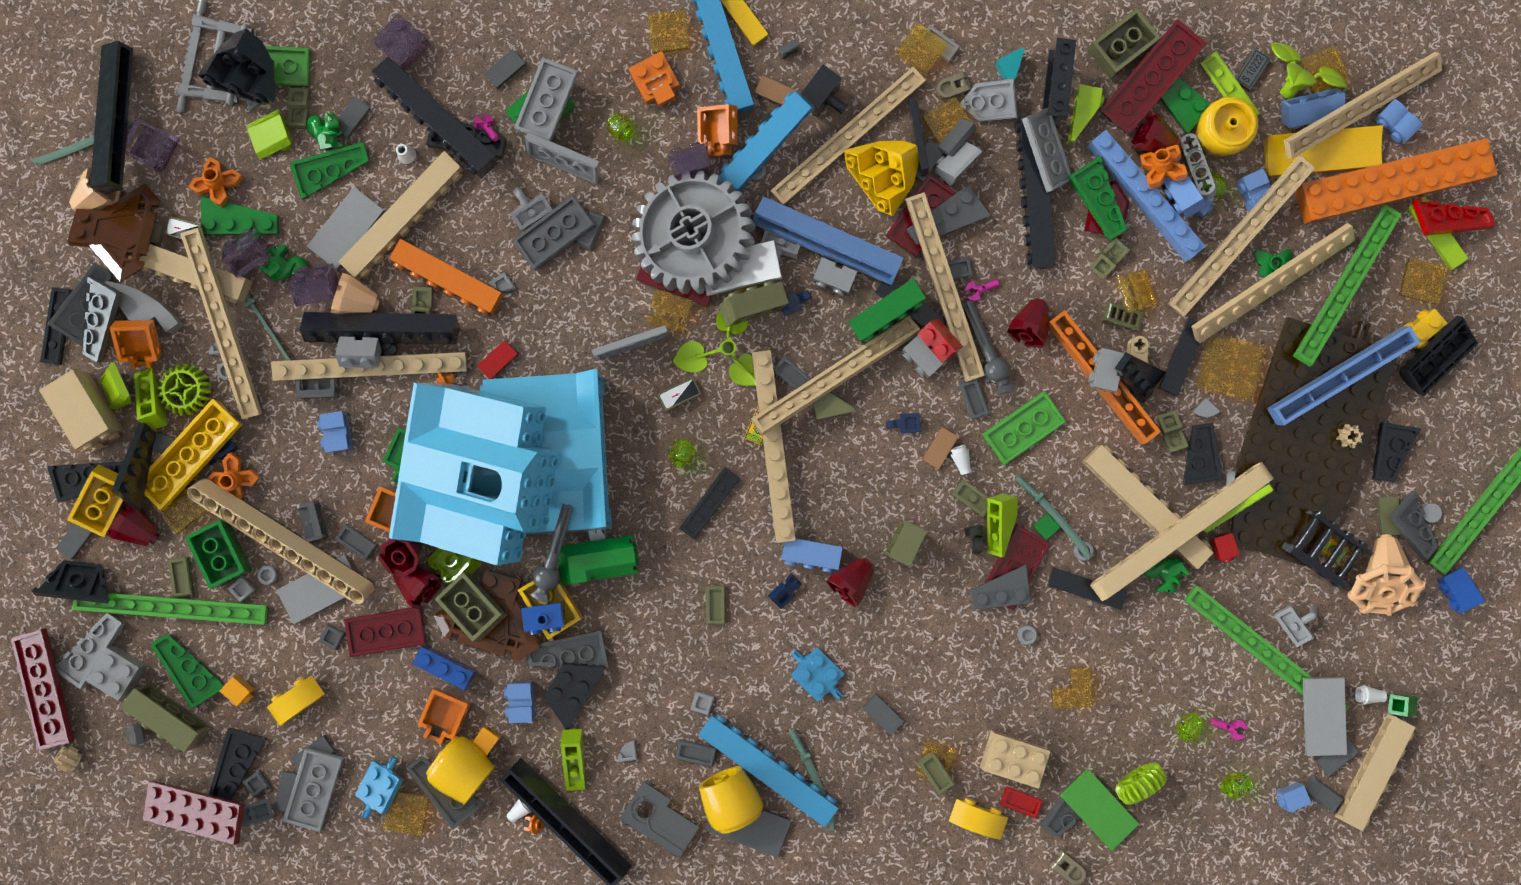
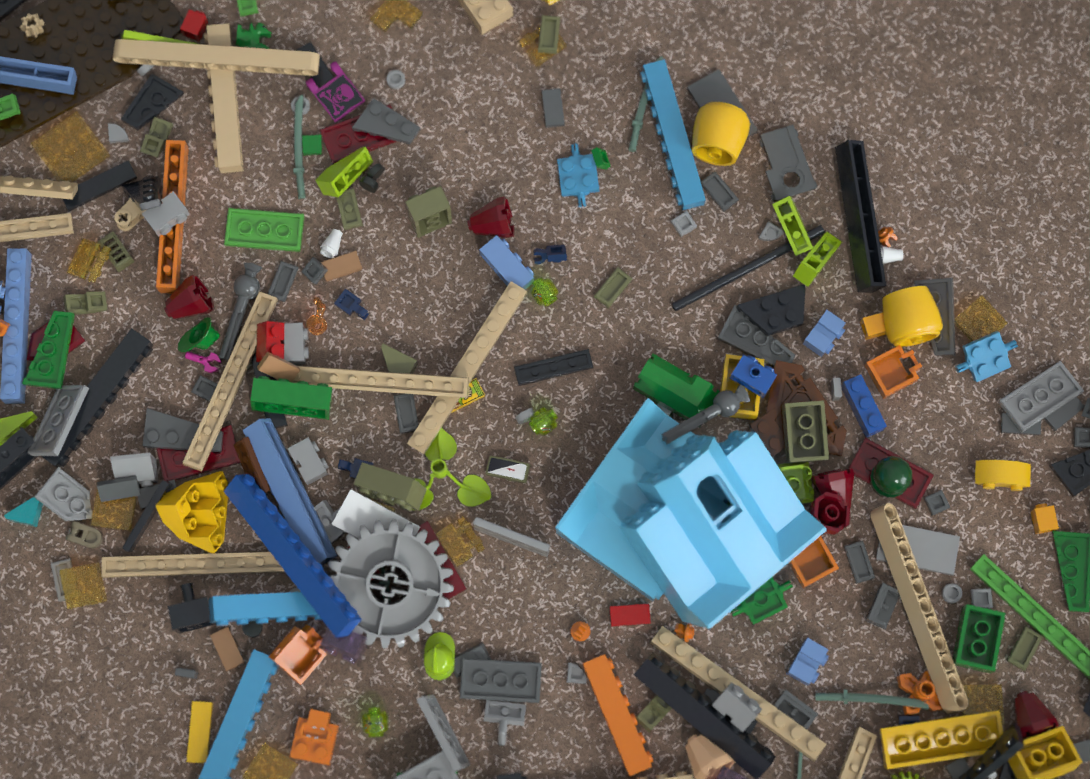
camera: 145 degrees left, 10 degrees down
(287, 429) = (857, 697): none -> sand green sword
(378, 626) = (891, 477): none -> dark green tile
(476, 664) = (836, 389): none -> light grey tile
(524, 317) = (580, 631): none -> orange plate
(612, 770) = (793, 225): none -> lime slope
(614, 214) = (439, 656): none -> lime piece
(622, 708) = (741, 271): none -> black piece
(699, 445) = (524, 416): none -> light grey tile
(765, 556) = (544, 291): none -> clear neon green head
(782, 191) = (292, 555): none -> blue brick
(810, 702) = (601, 158): none -> green tile
(872, 236) = (250, 462): none -> reddish brown tile
(915, 324) = (278, 367): none -> medium nougat tile
(921, 390) = (317, 319): none -> clear orange plate
(956, 427) = (314, 270): none -> dark grey tile
(1000, 301) = (200, 336): none -> green piece
(1060, 583) = (337, 95): none -> flag

